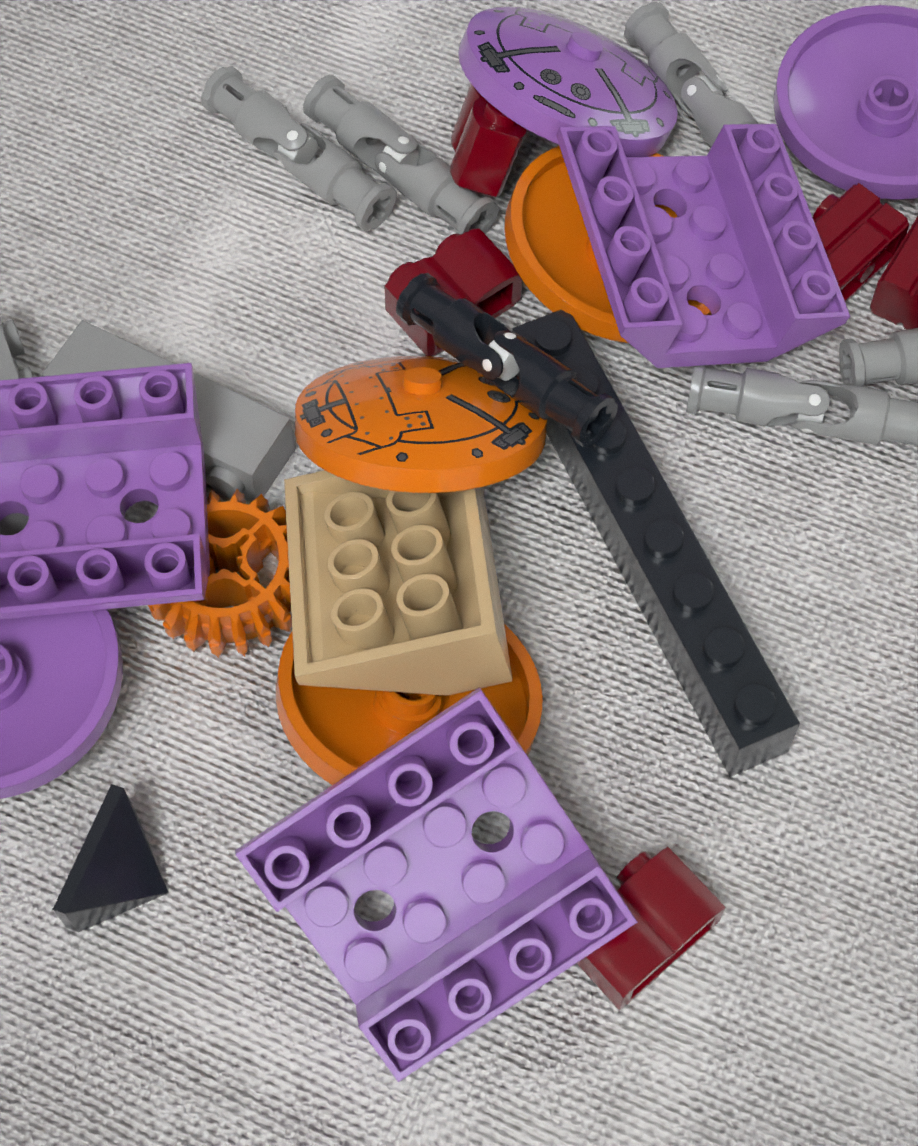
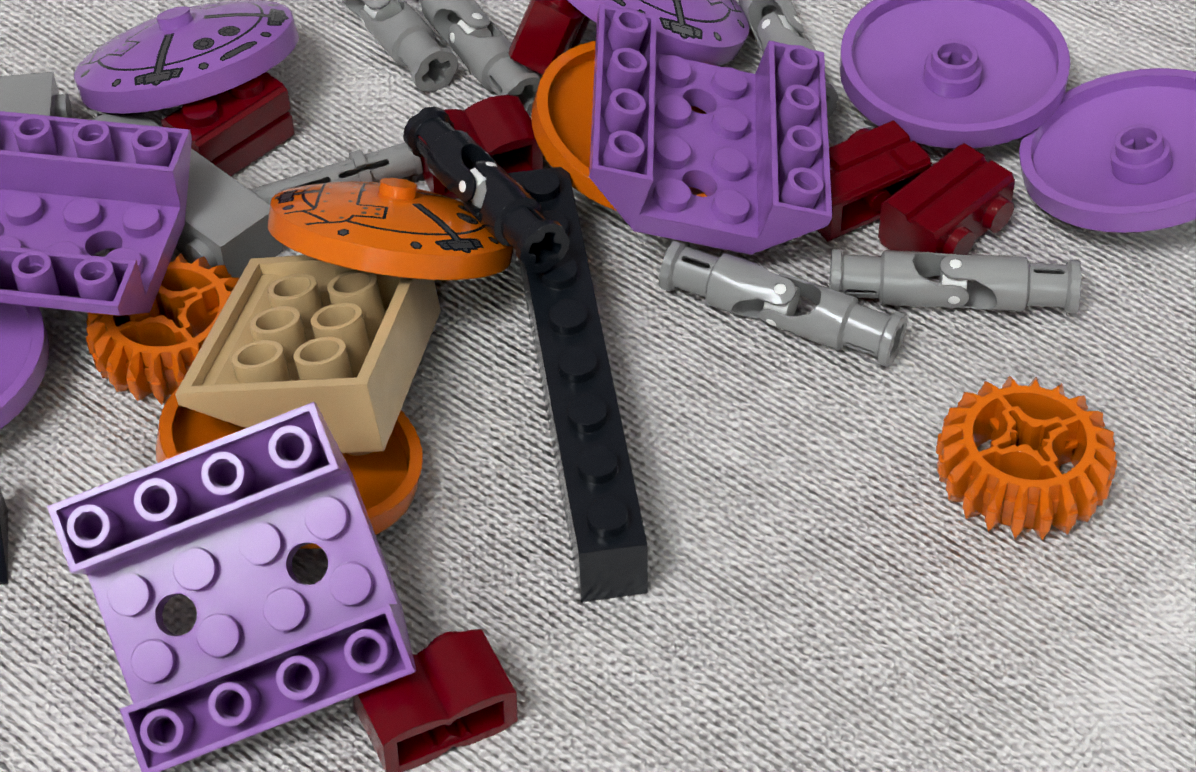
camera: 15 degrees right, 15 degrees down
(125, 252) = (186, 55): none -> medium lavender dish
(200, 314) = (238, 123): none -> dark red brick
(381, 326) = (371, 167): none -> light grey pin

